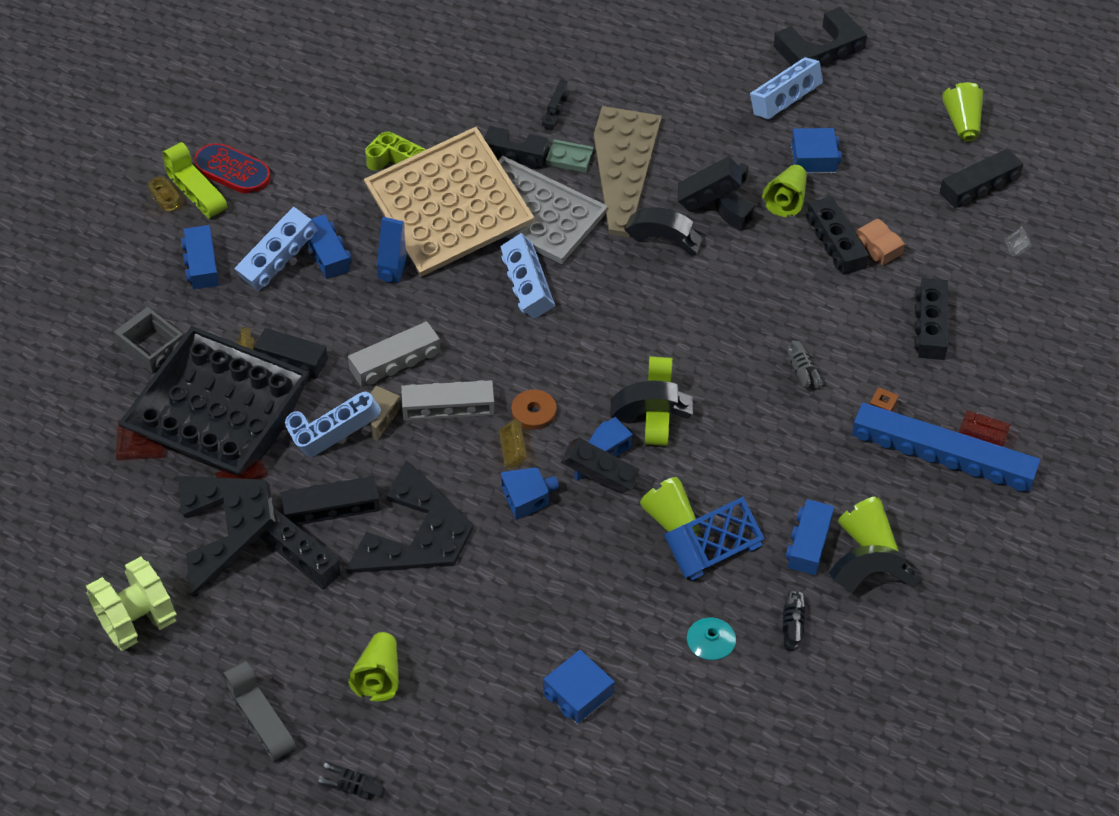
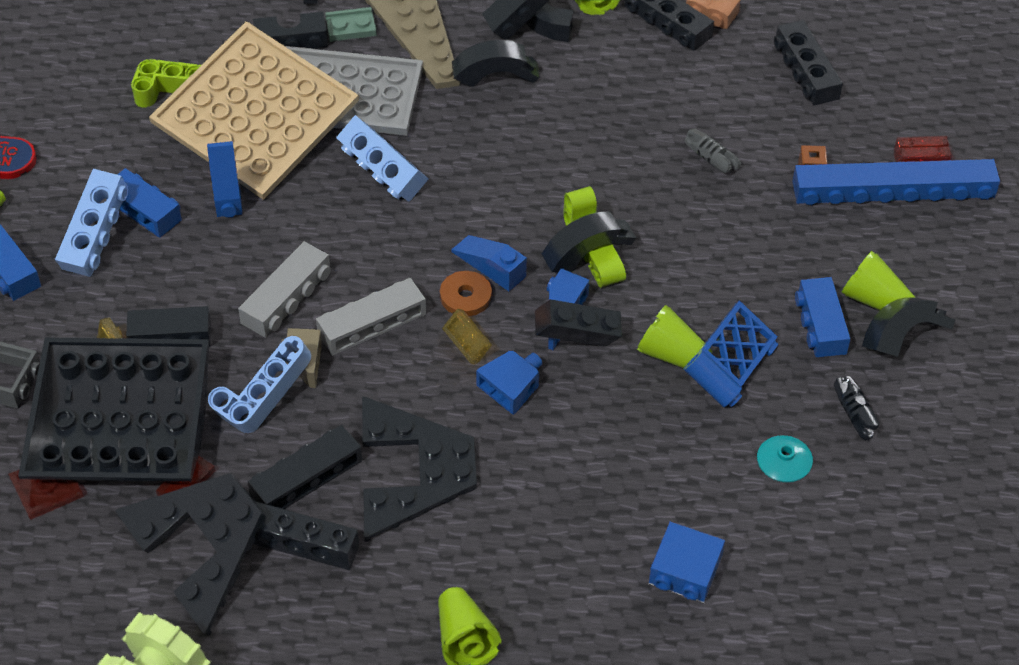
camera: 25 degrees left, 0 degrees up
(569, 391) = (493, 259): none -> blue slope

